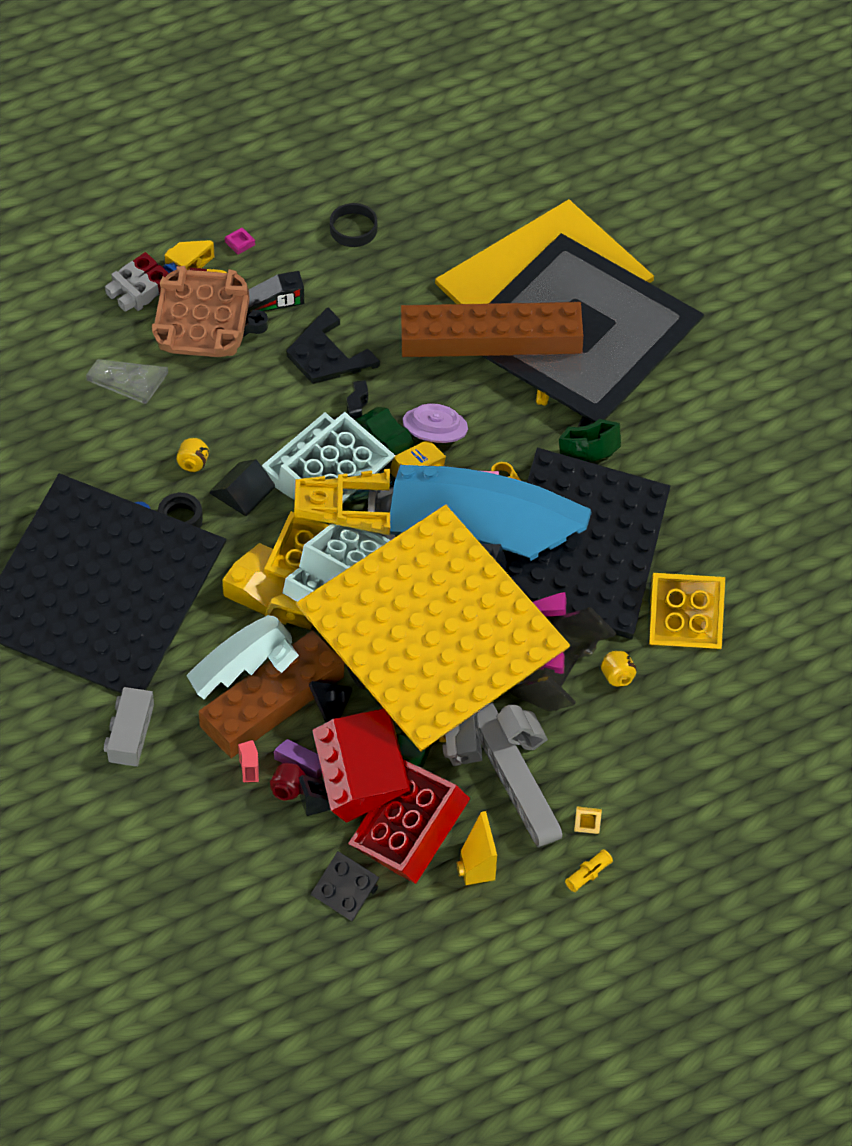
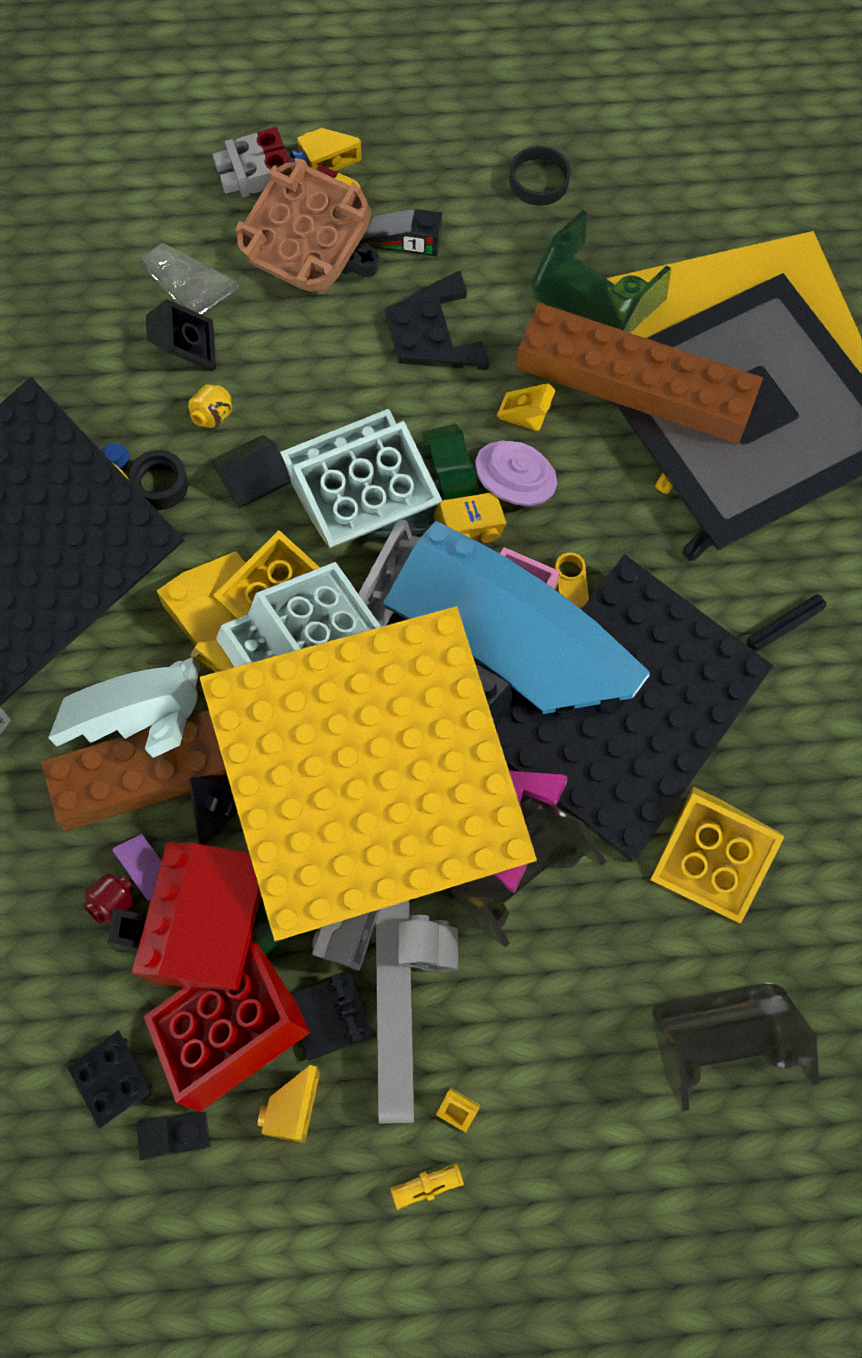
camera: 20 degrees right, 15 degrees up
(145, 414) = (182, 333): none -> black slope
(240, 241) = (398, 150): dark pink tile -> none
(249, 761) = (75, 852): coral piece -> none
(323, 498) = (316, 531): yellow wing -> none
(357, 399) = (438, 405): black piece -> none
(404, 905) = (173, 1135): none -> black slope
(420, 287) = (578, 289): none -> clear green windscreen
(421, 379) = (527, 406): none -> yellow slope
(482, 795) = (332, 1015): none -> black hinge
(591, 441) = (696, 569): dark green brick -> none
(618, 668) = (593, 903): yellow head -> none
(667, 456) = (786, 622): none -> black axle
(748, 707) = (731, 1028): none -> clear smoke windscreen

